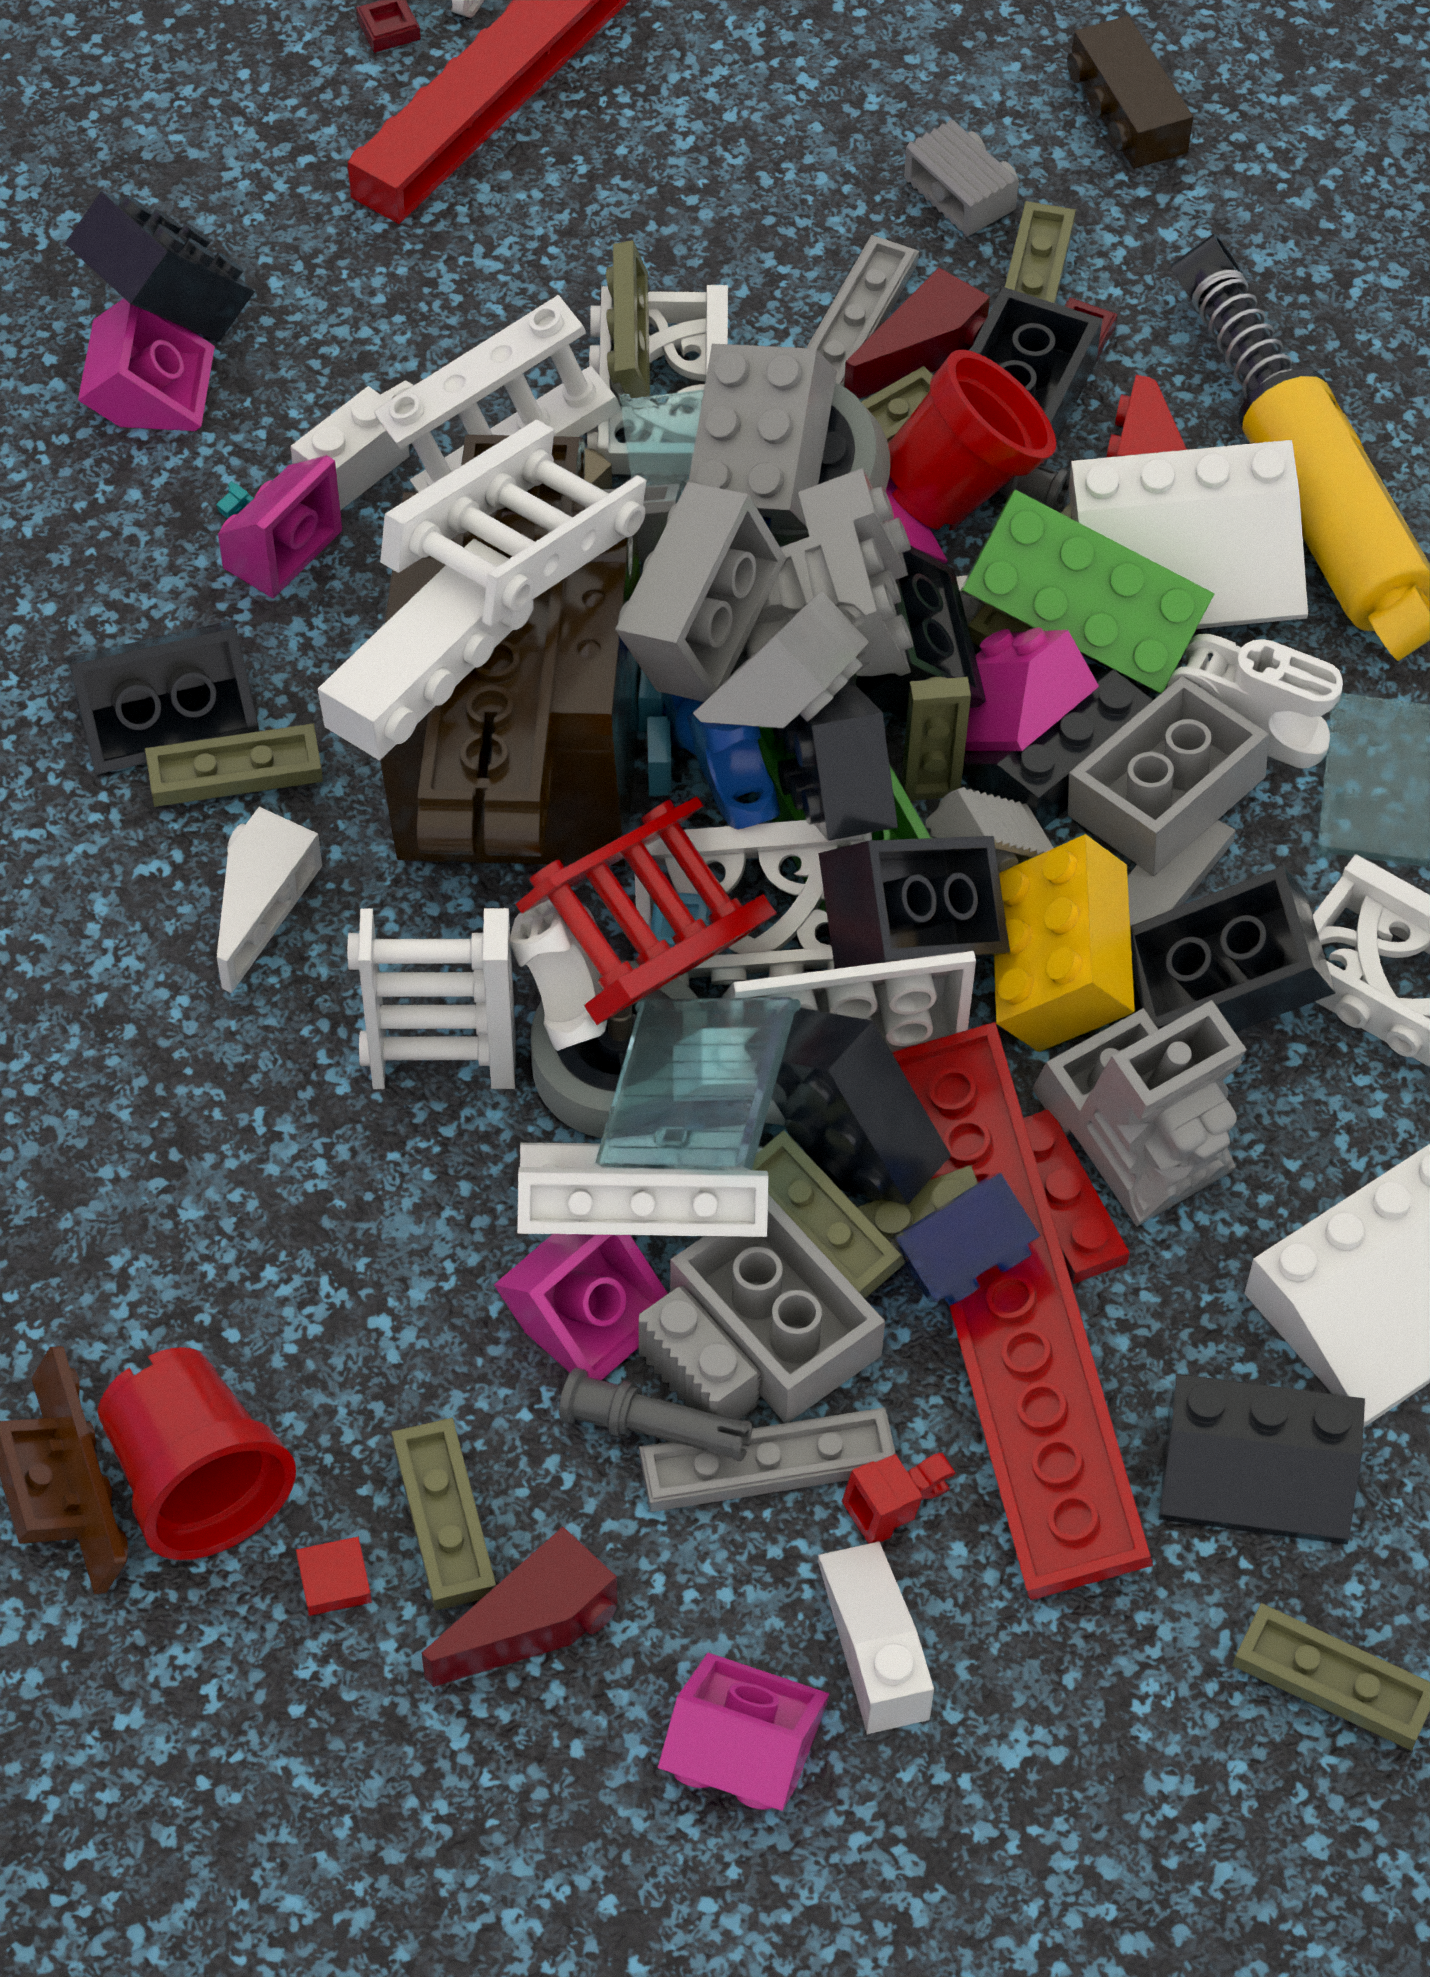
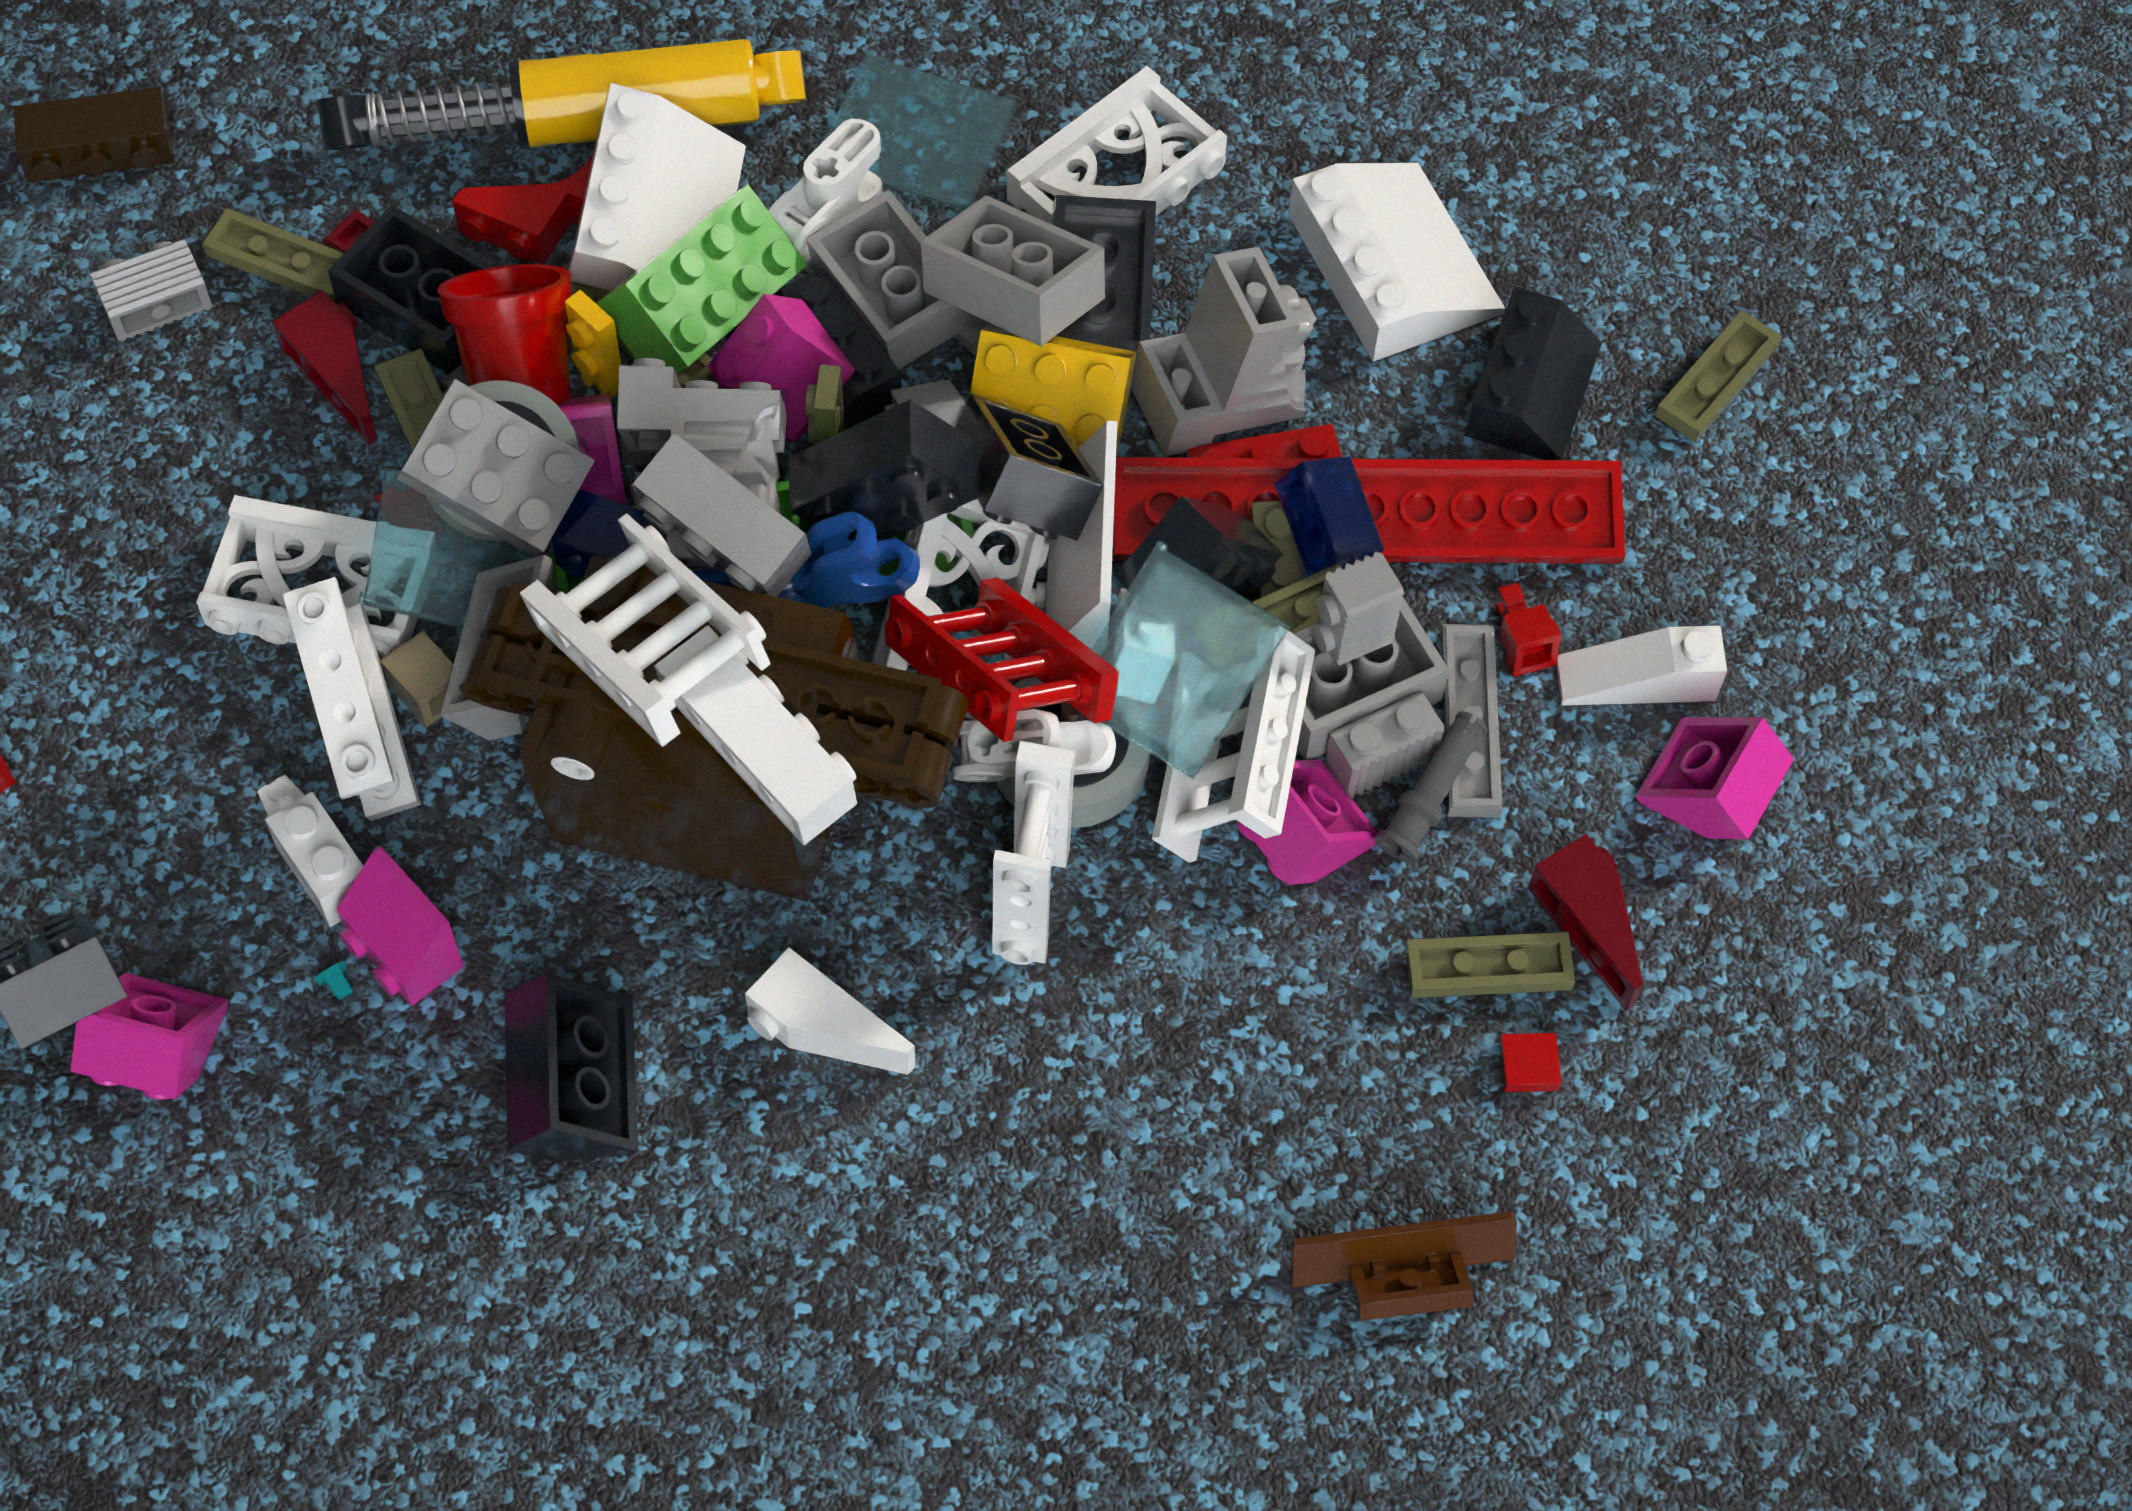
camera: 80 degrees left, 5 degrees up
(193, 1456) = (1424, 1140): red piece -> none
(233, 765) = (668, 1022): olive plate -> none
(629, 321) = (256, 579): olive plate -> none
(791, 672) = (829, 473): light grey slope -> none
(809, 1252) = (1358, 609): none -> light grey brick
(864, 300) = (285, 415): light grey tile -> none
(978, 508) = (593, 343): none -> yellow plate
(1163, 841) = (1013, 270): none -> light grey brick

